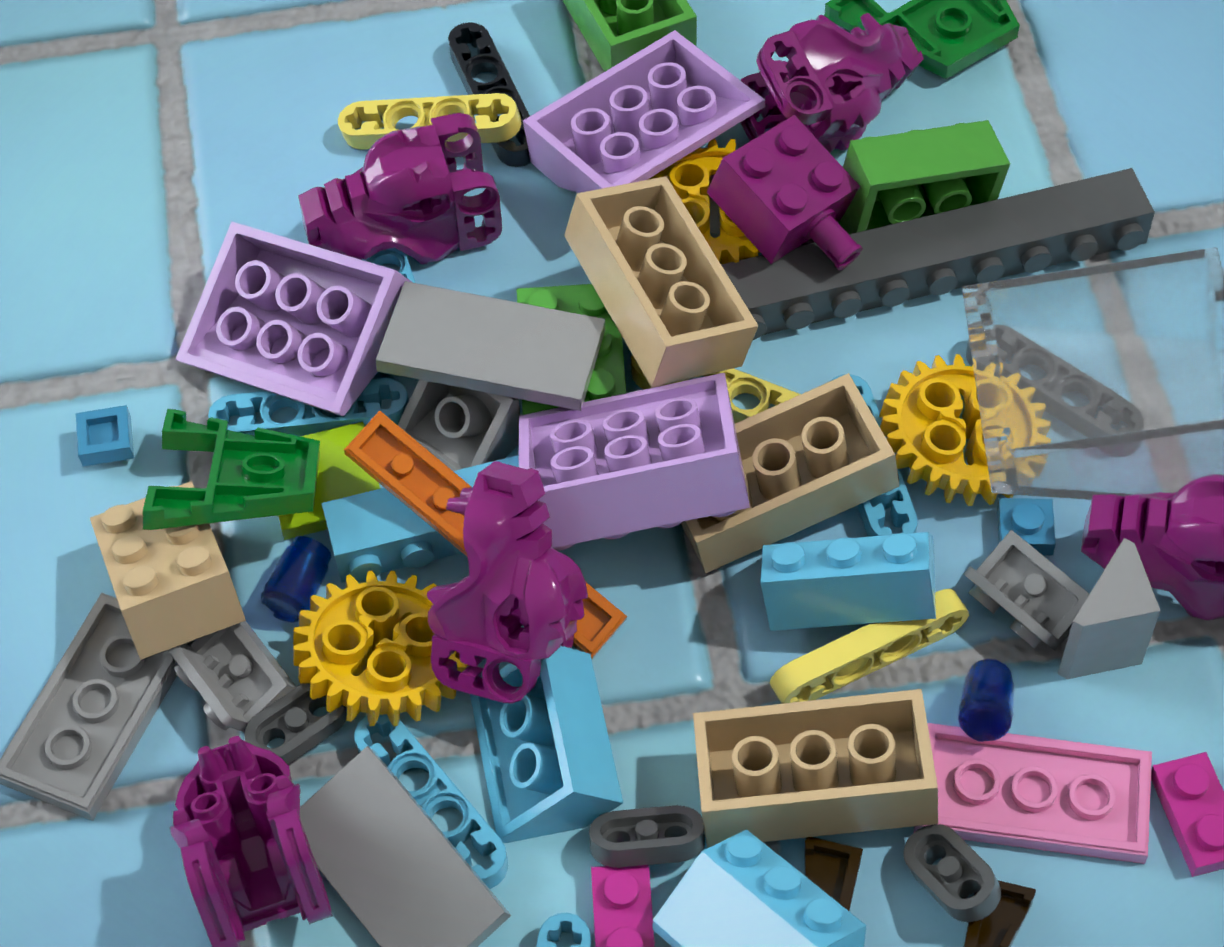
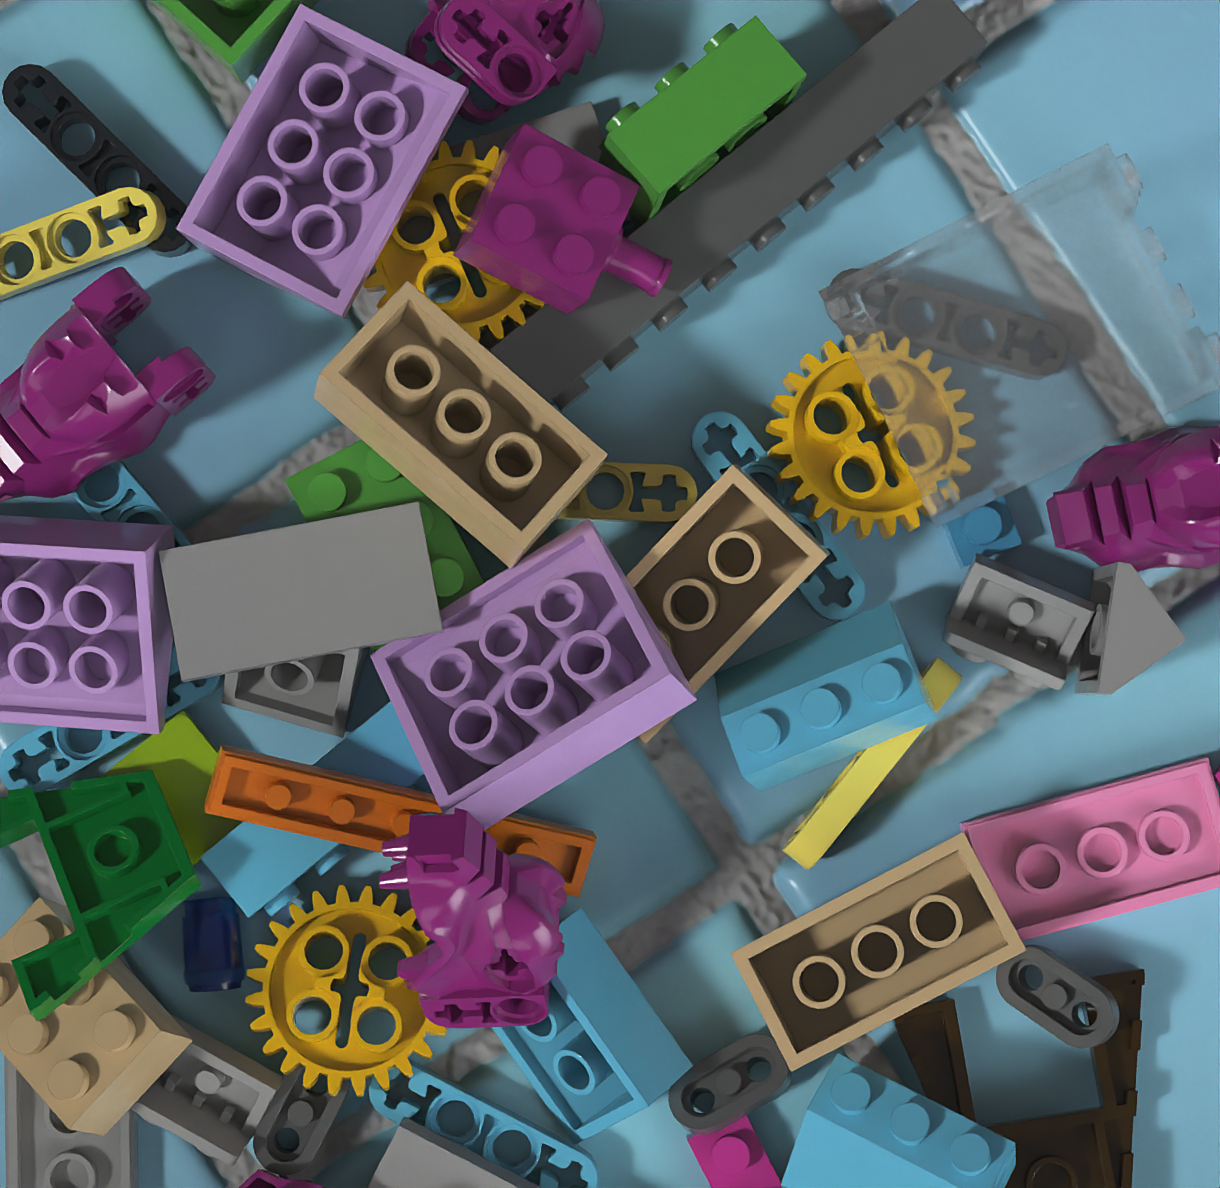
camera: 25 degrees left, 30 degrees up
(987, 701) = (1021, 780): clear blue piece -> none

